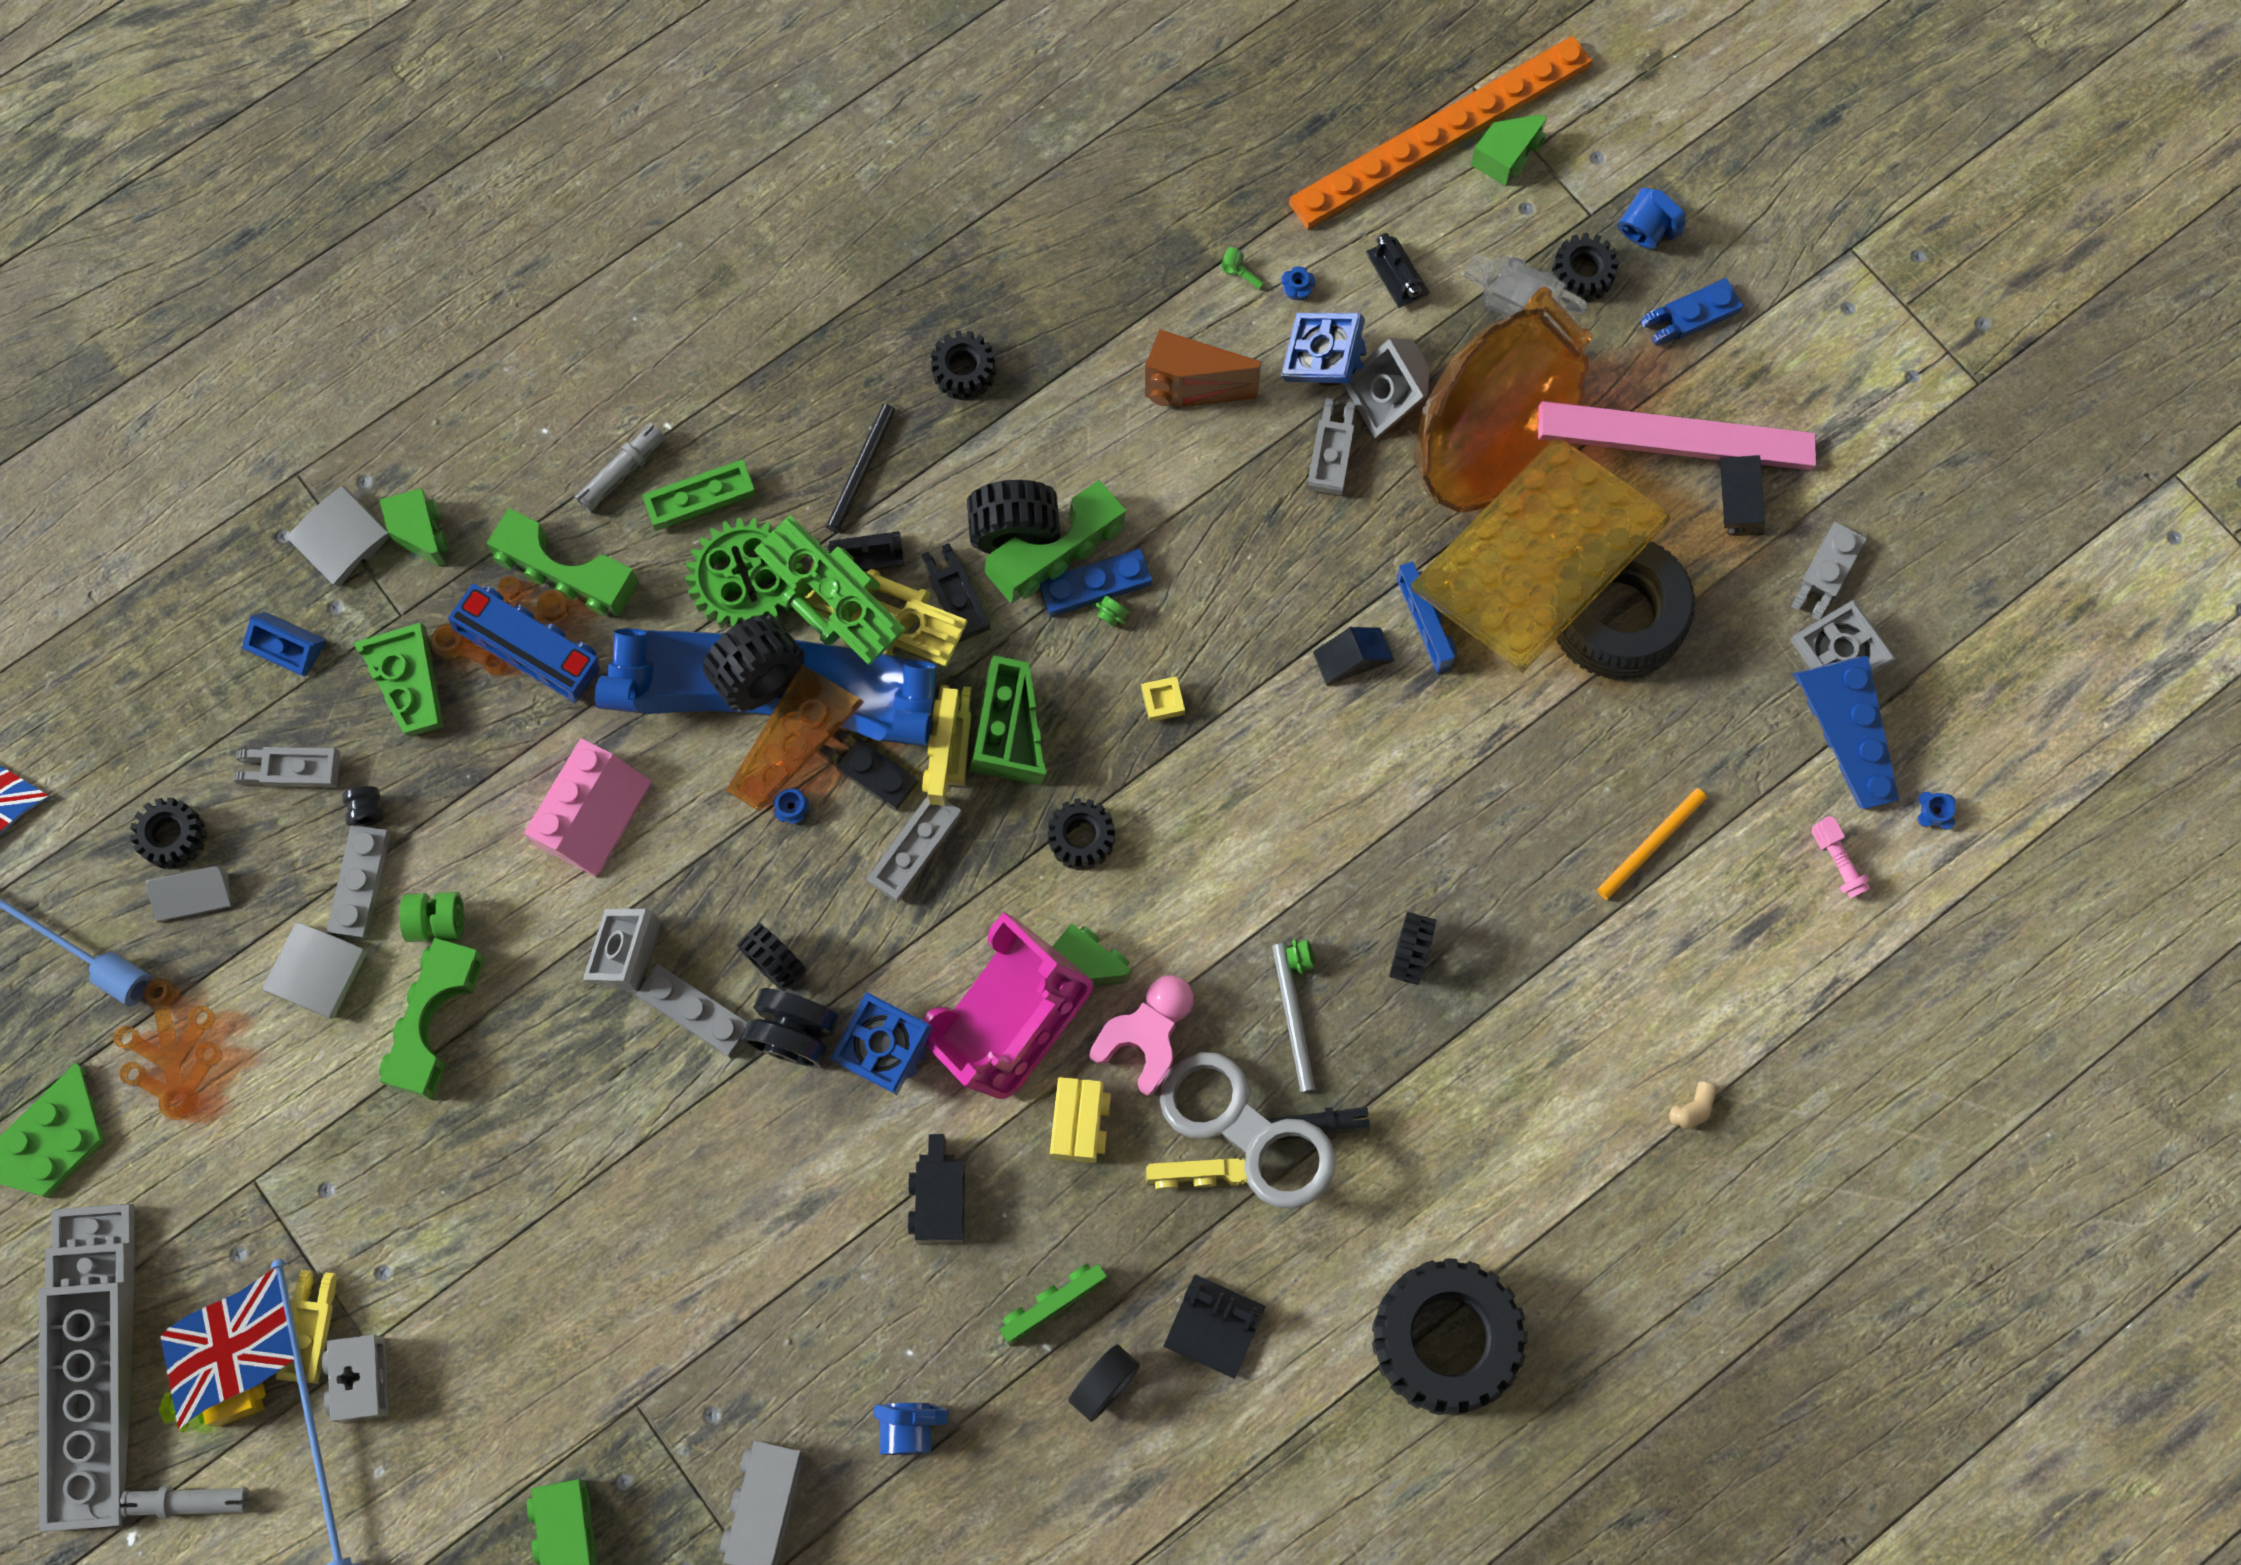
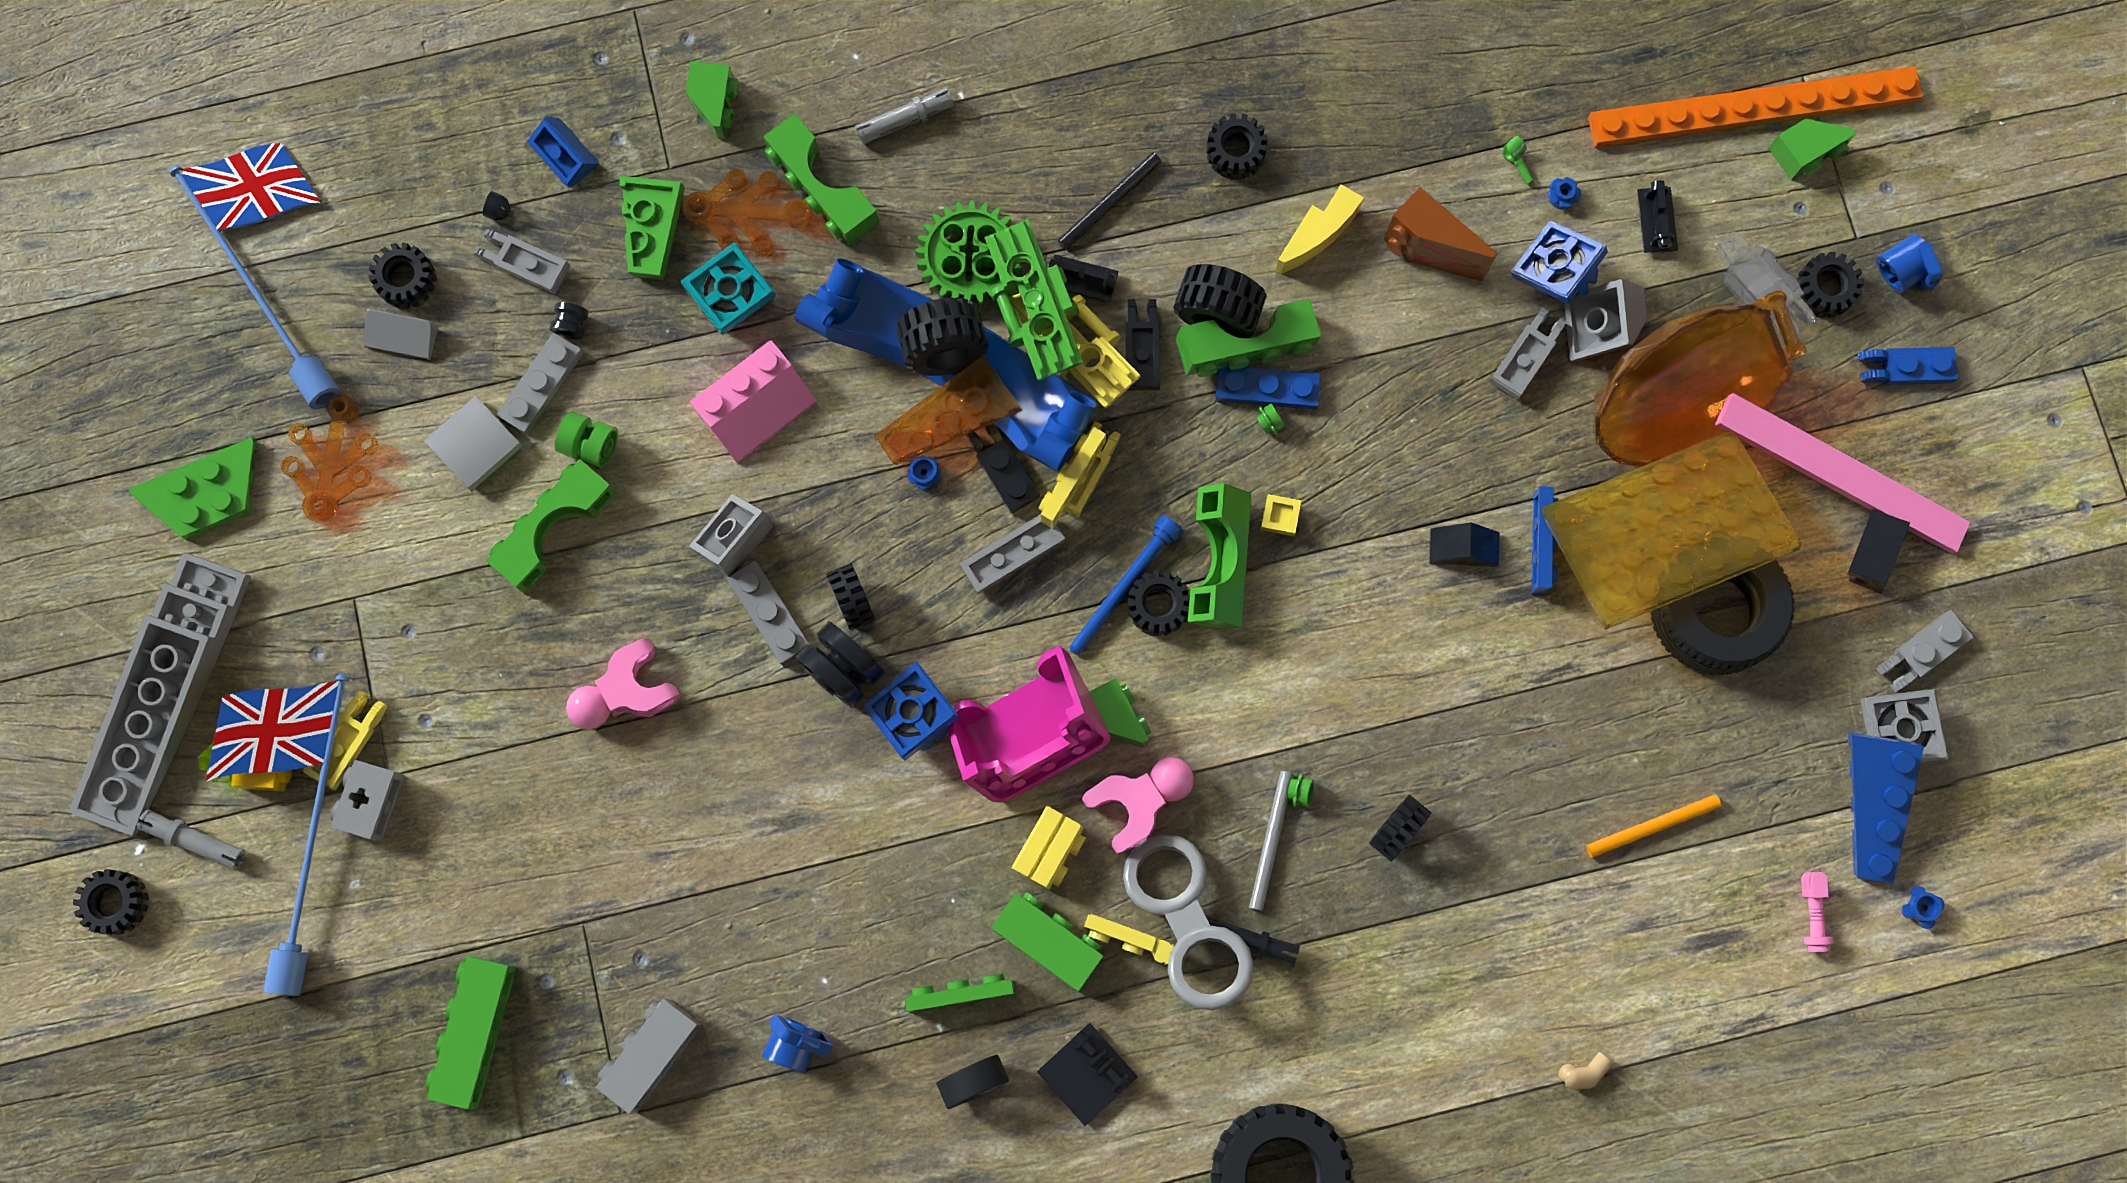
camera: 25 degrees right, 5 degrees up
(237, 725) = (496, 206): none -> black hinge
(339, 535) = (645, 77): light grey slope -> none
(515, 708) = (729, 291): none -> teal piece
(524, 642) = (759, 236): blue brick -> none
(576, 1153) = (619, 691): none -> bright pink piece
(698, 495) = (961, 167): bright green plate -> none
(938, 1196) = (903, 861): black hinge -> none
(1007, 726) = (1136, 482): bright green wedge -> none
(1057, 763) = (1164, 533): none -> blue piece
(1079, 410) = (1320, 229): none -> light yellow slope
(1110, 724) = (1225, 518): none -> bright green arch
(1117, 1211) = (1048, 940): none -> bright green brick

